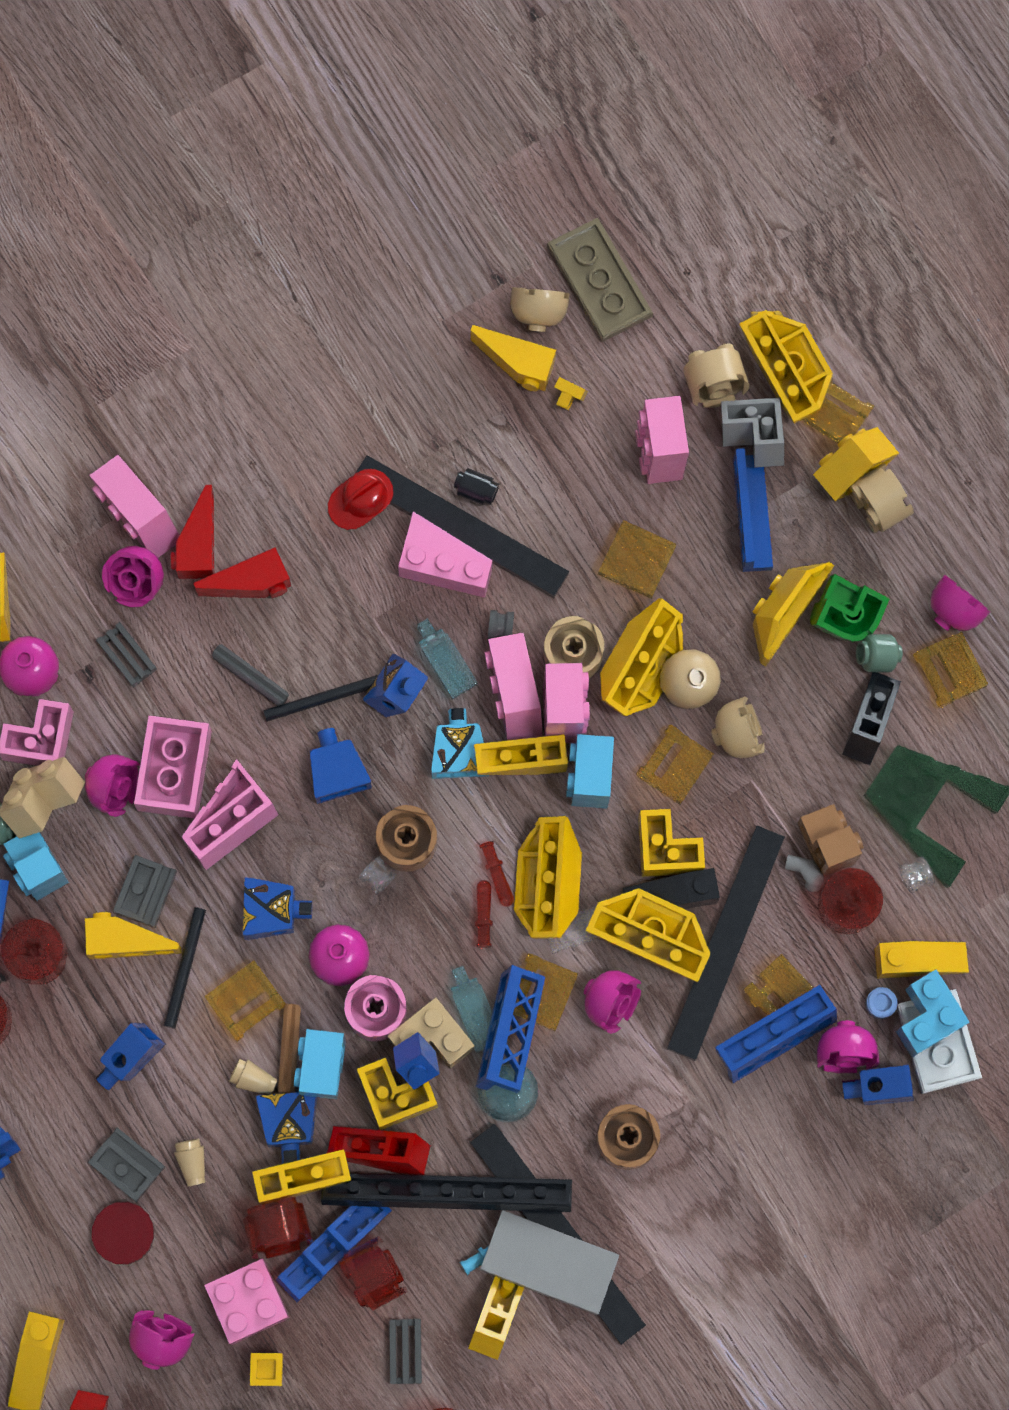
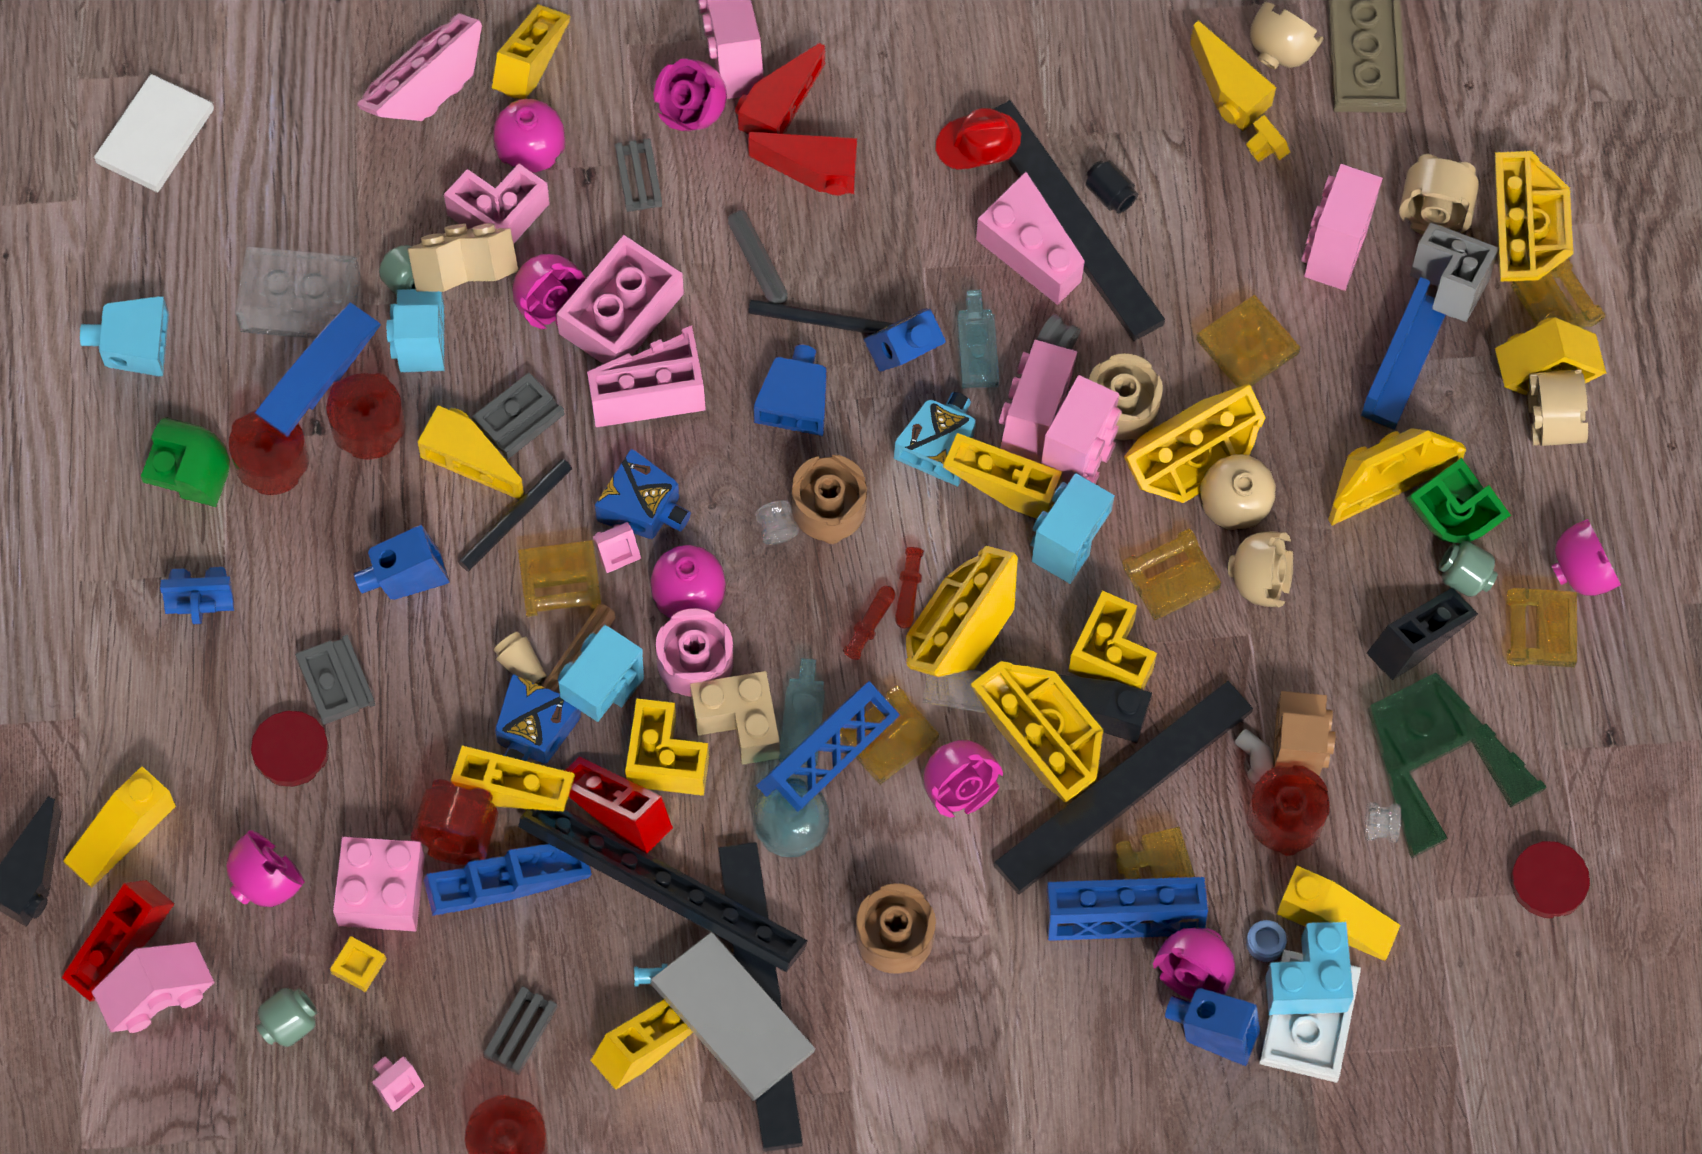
camera: 30 degrees right, 10 degrees down
(191, 1161) = (405, 710): tan cone -> none
(273, 955) = (617, 547): none -> bright pink tile
(373, 1274) = (531, 924): clear red brick -> none
(416, 1060) = (704, 718): blue brick -> none

